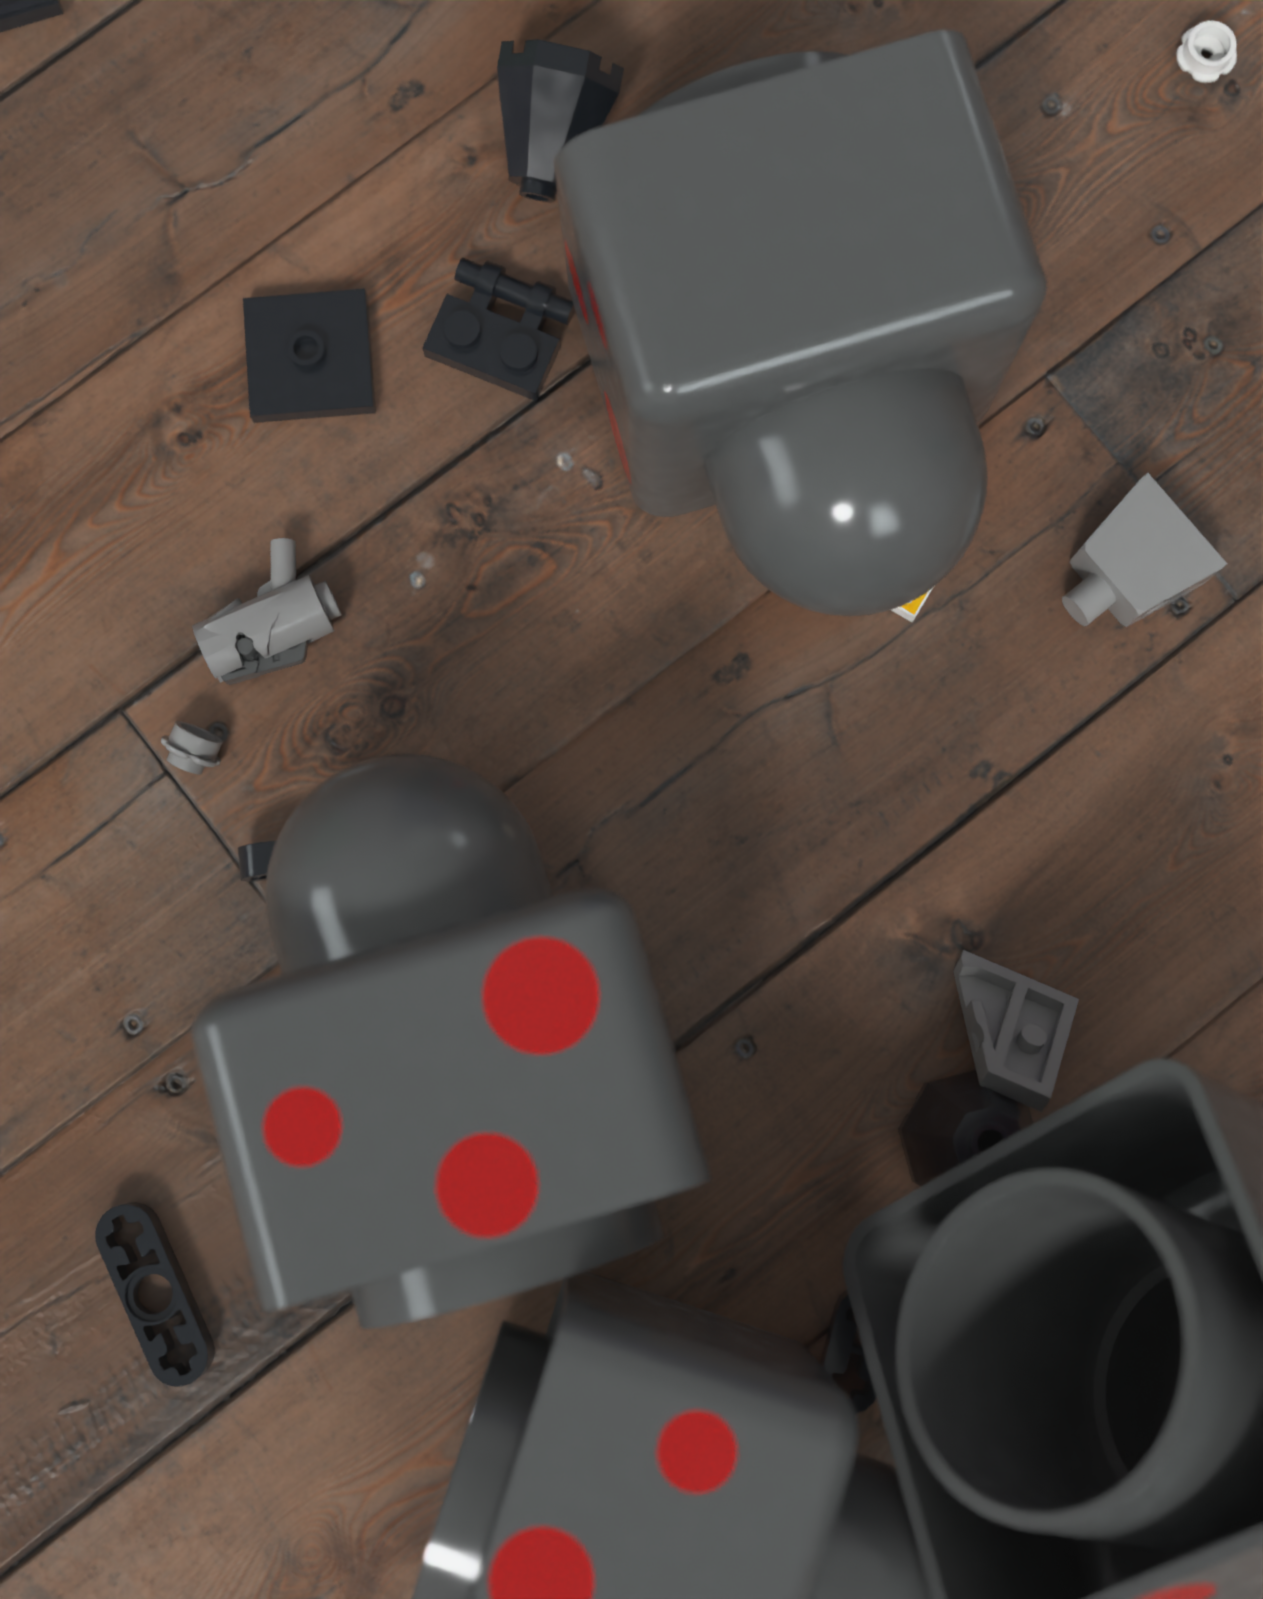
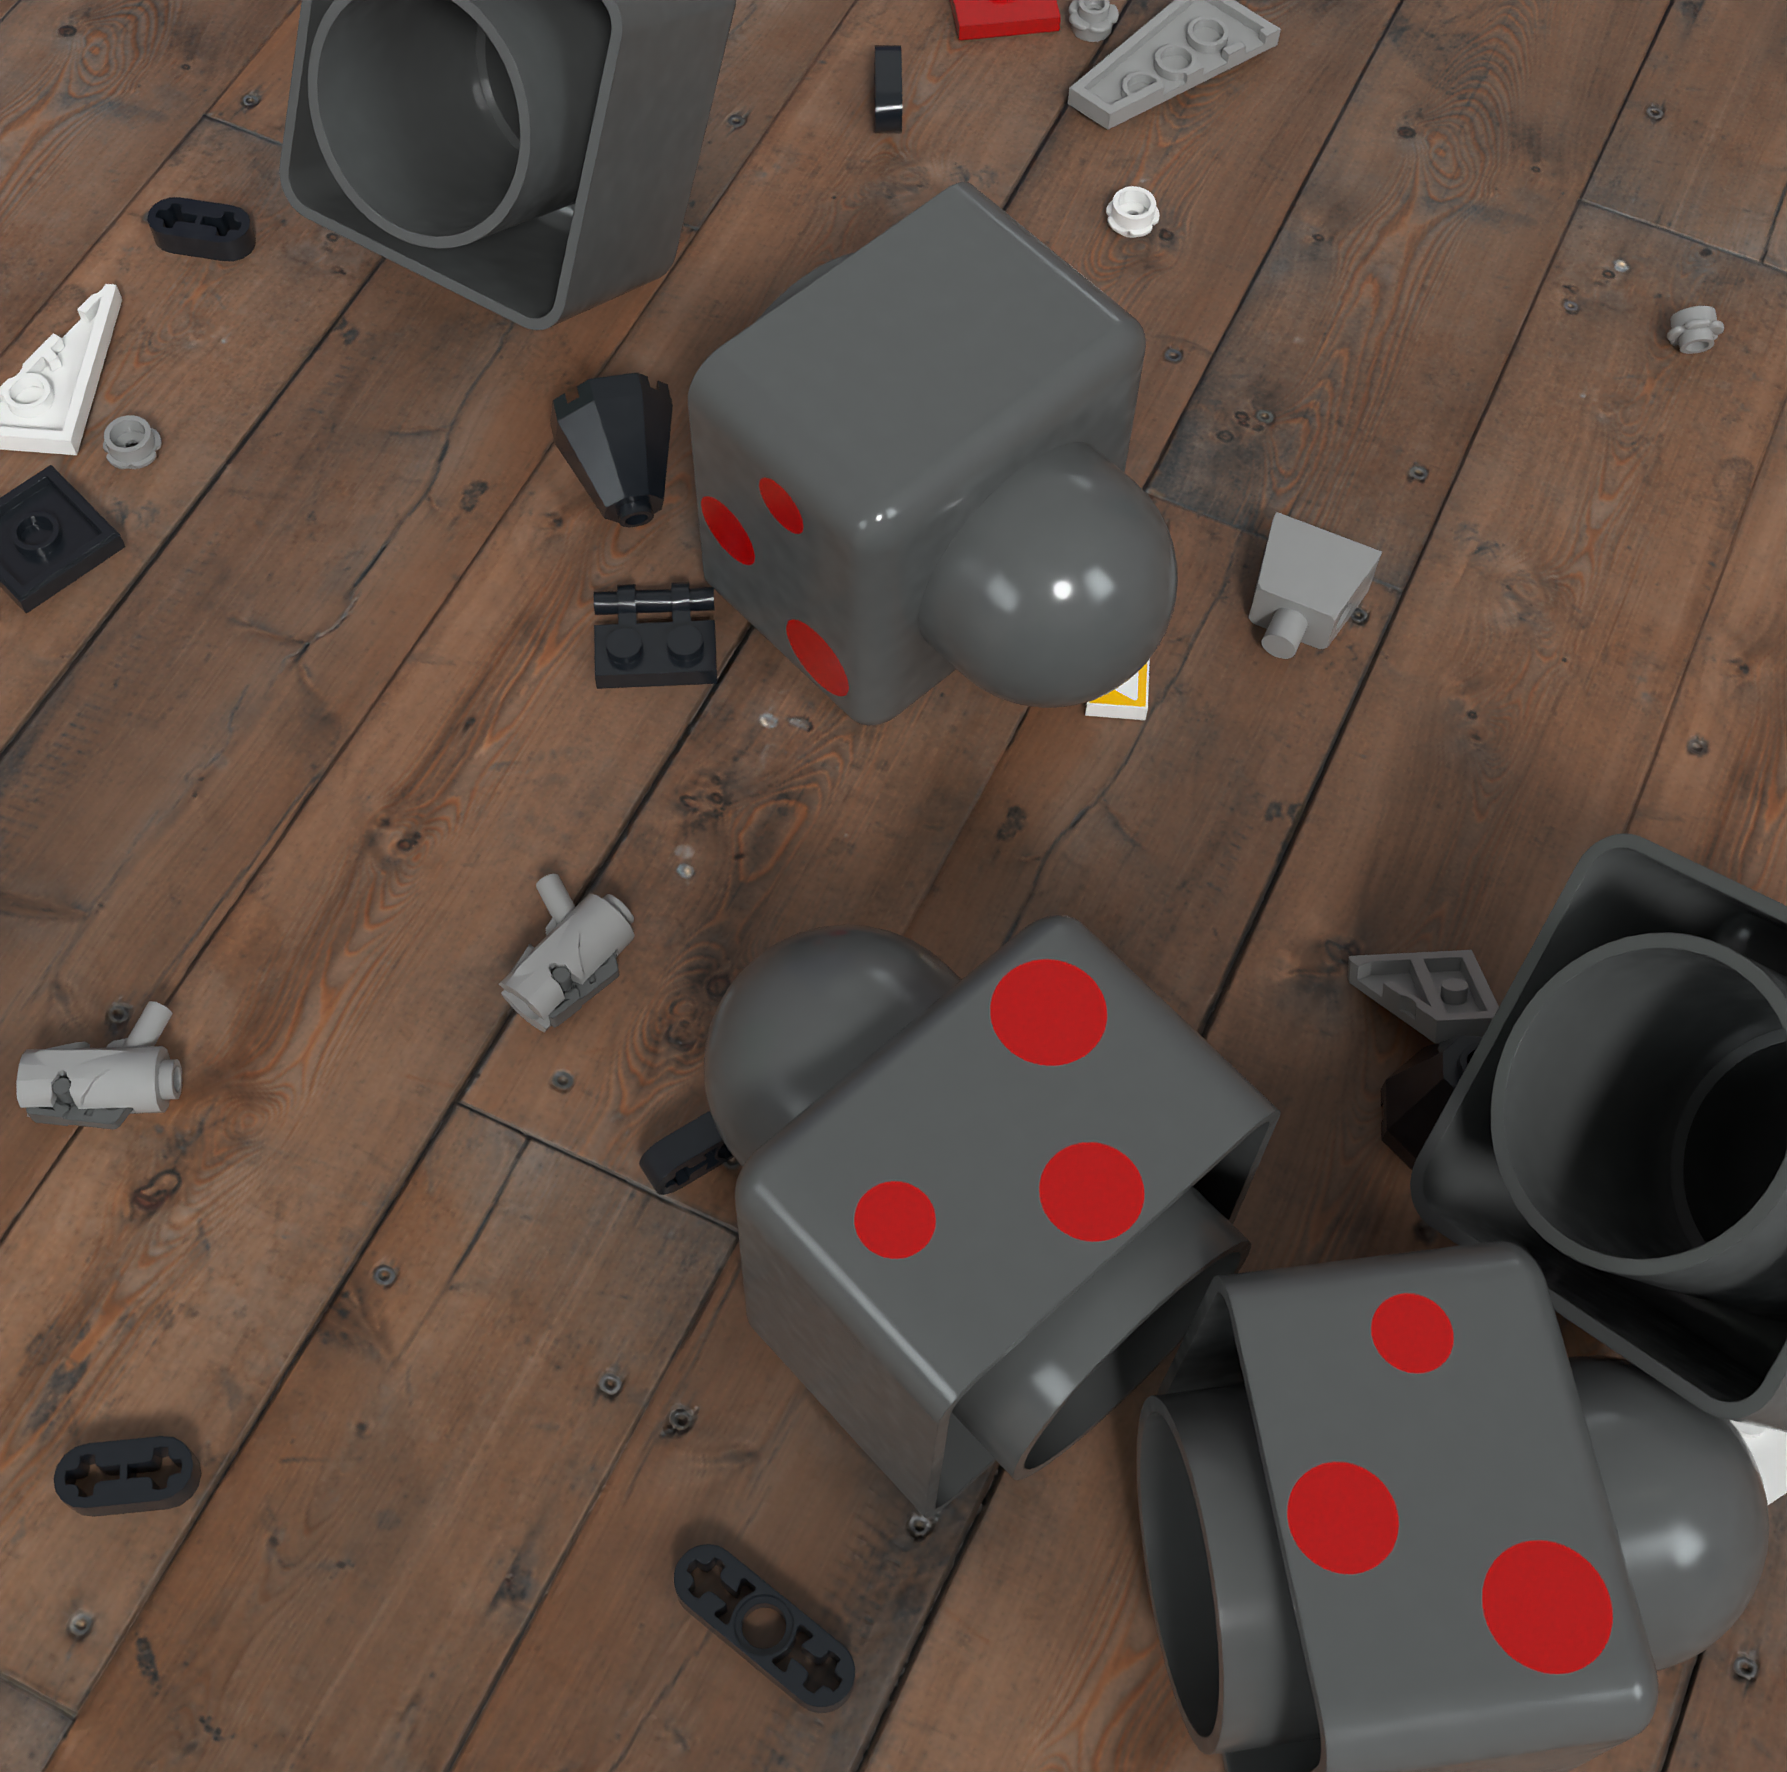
camera: 30 degrees left, 20 degrees down
(192, 747) = (547, 1096): light grey plate -> none
(309, 355) = (491, 726): black plate -> none

